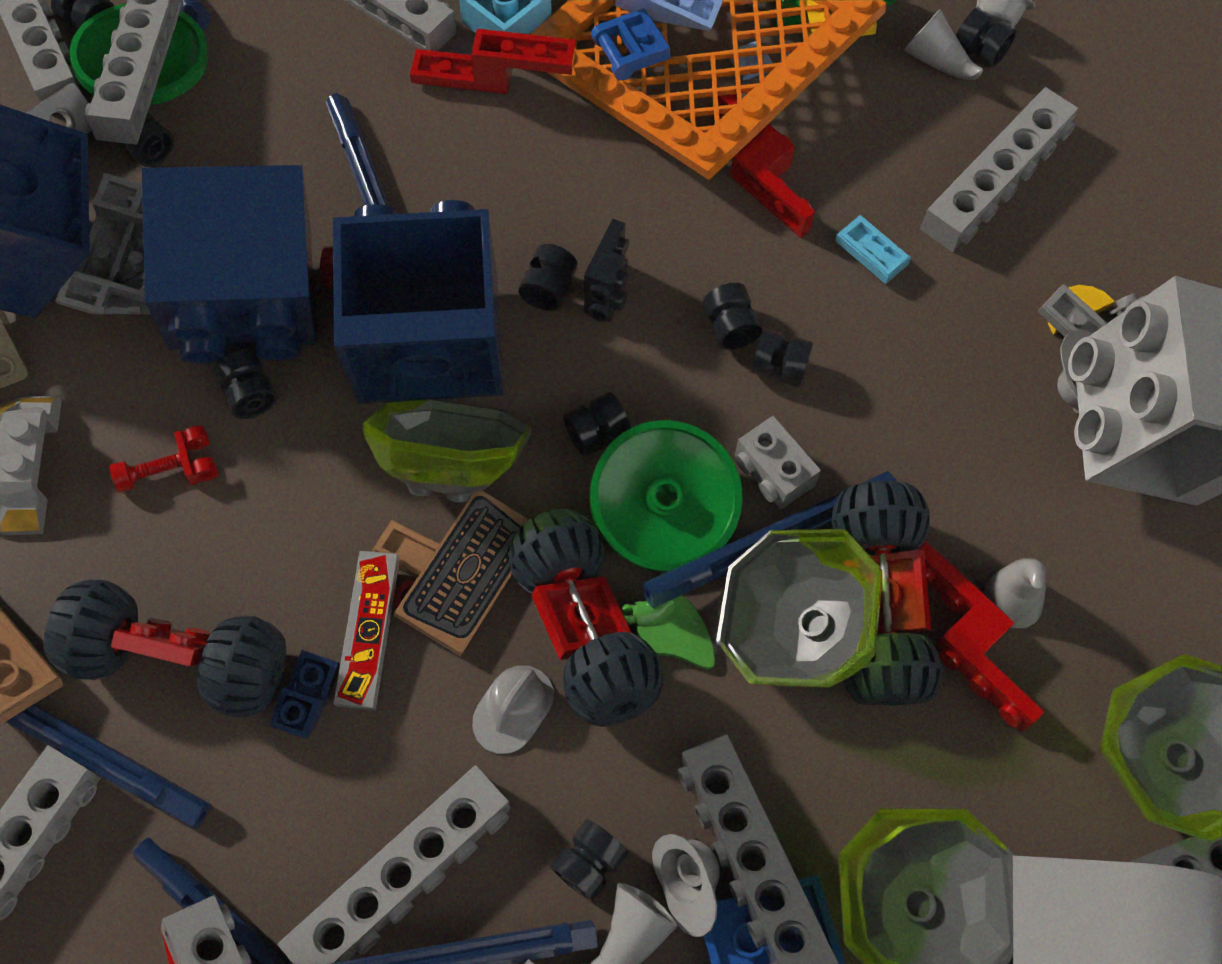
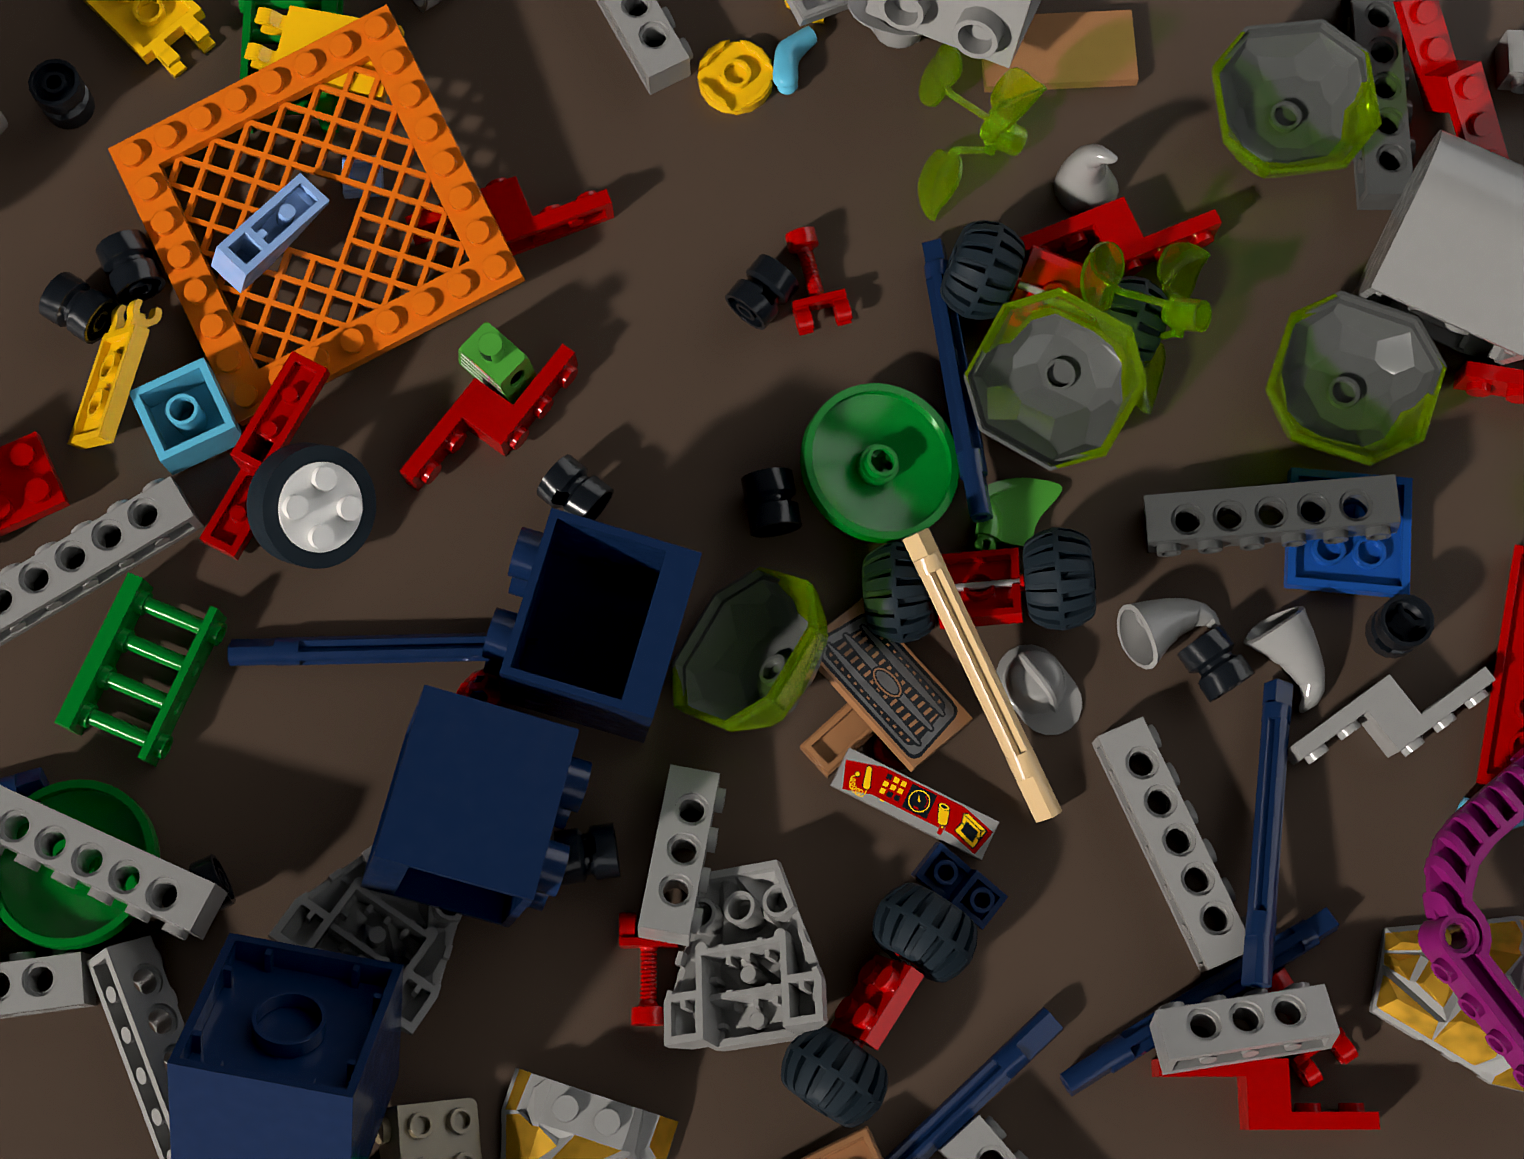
camera: 70 degrees left, 10 degrees up
(178, 529) = (748, 970): none -> light grey wedge
(242, 439) = (684, 790): none -> light grey brick
(303, 24) = (118, 636): none -> green fence
(461, 98) = (311, 505): none -> wheel
(494, 640) = (982, 675): none -> tan piece
(588, 199) = (490, 418): none -> red bracket
(607, 275) = (608, 429): black plate -> none
(609, 791) = (1152, 626): none -> light grey hat
(638, 179) = (495, 362): none -> bright green torso
(640, 38) = (310, 281): blue plate -> none
(689, 880) = (1263, 582): light grey piece -> none
(732, 316) = (695, 321): black wheel -> none
(776, 463) = (880, 344): light grey brick -> none
(842, 377) = (802, 242): none -> red bar
(873, 249) = (663, 151): medium azure plate -> none
(963, 702) = (1176, 272): none -> clear neon green plant
(967, 283) = (735, 76): none -> yellow tile
(1004, 313) = (787, 59): none -> medium azure arm
(1023, 496) = (1009, 101): none -> clear neon green plant
(1135, 541) = (1075, 51): none -> medium nougat tile

